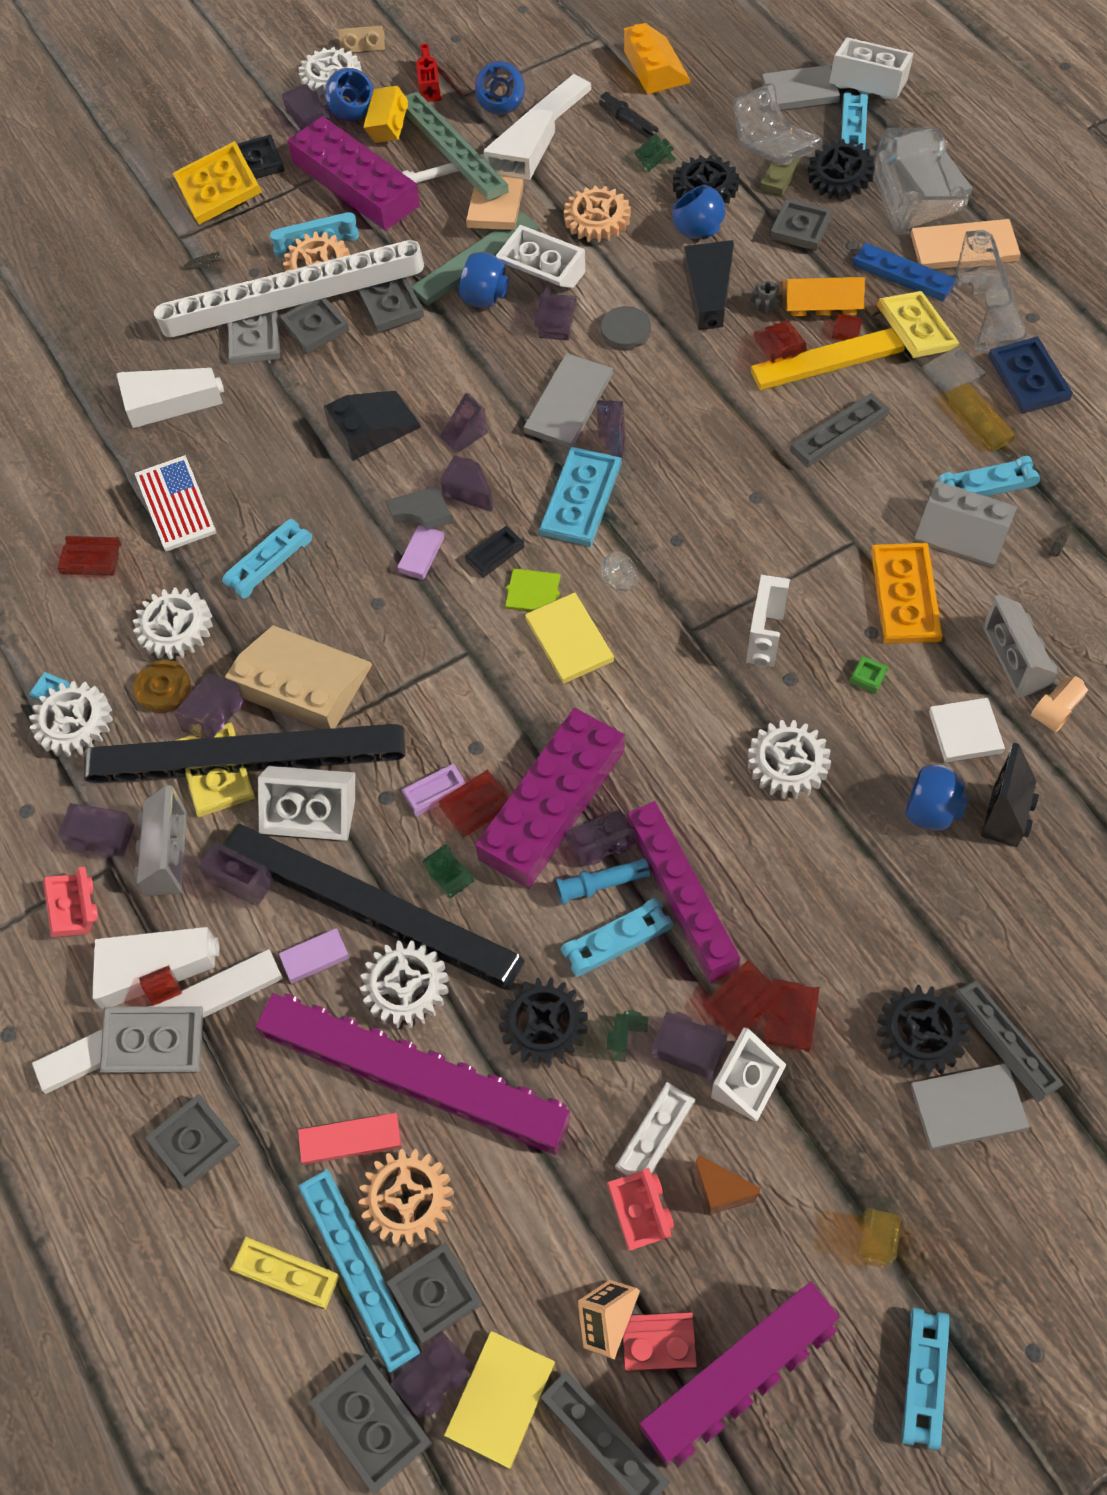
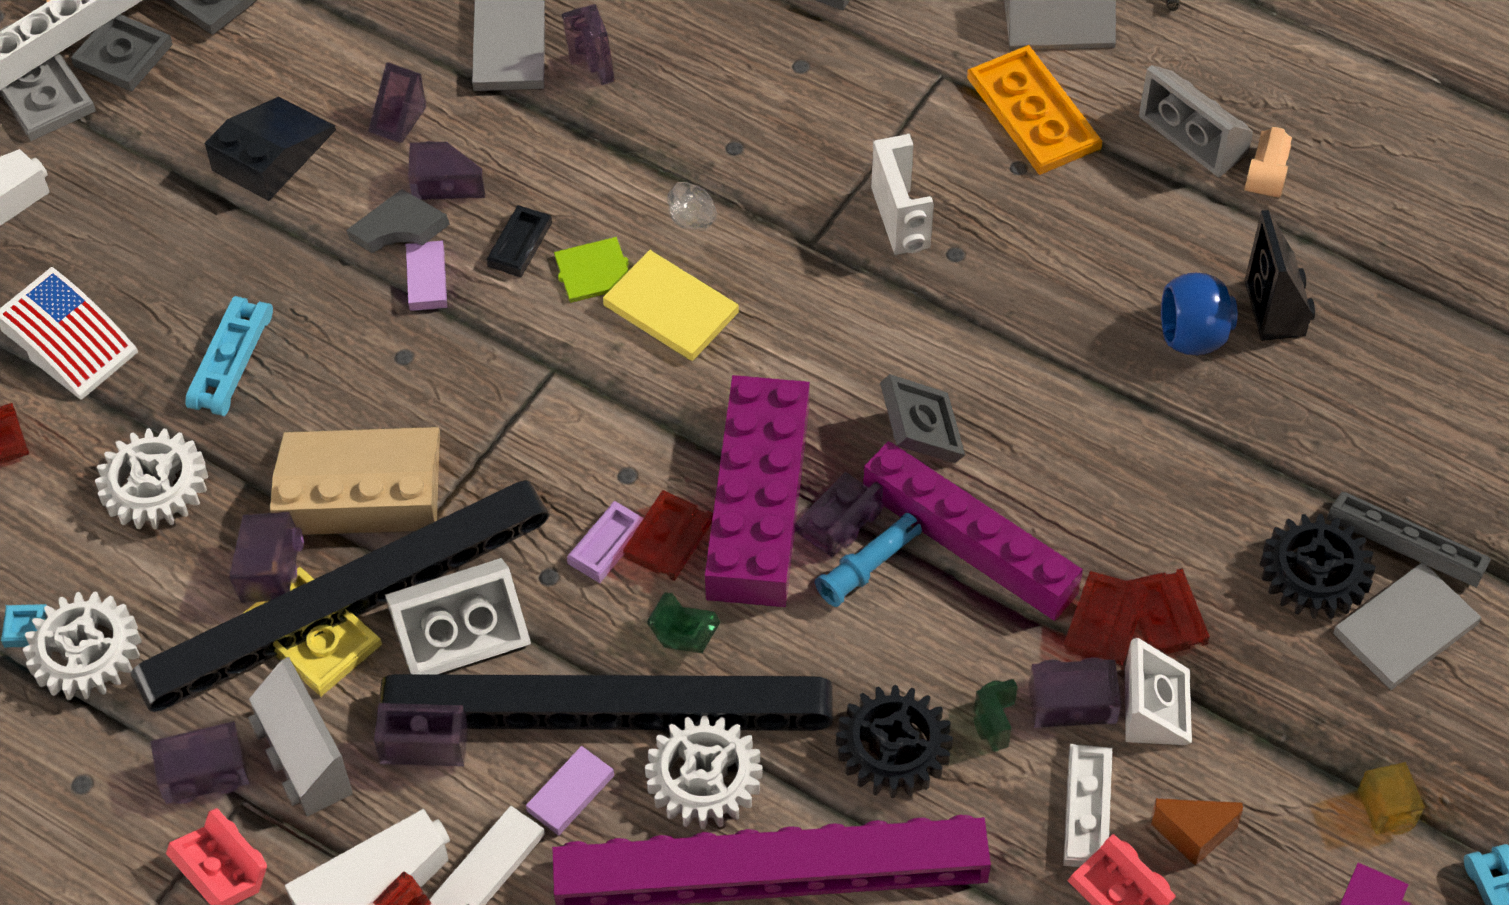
camera: 30 degrees left, 5 degrees down
(162, 686) = (179, 561): pearl gold tile -> none
(580, 496) = (589, 139): medium azure tile -> none
(617, 937) = (922, 615): medium azure plate -> none
(691, 794) = (922, 419): none -> dark grey plate
(794, 773) = (1014, 345): white gear -> none
(868, 674) = (1043, 214): bright green tile -> none
(966, 730) = (1184, 232): white tile -> none

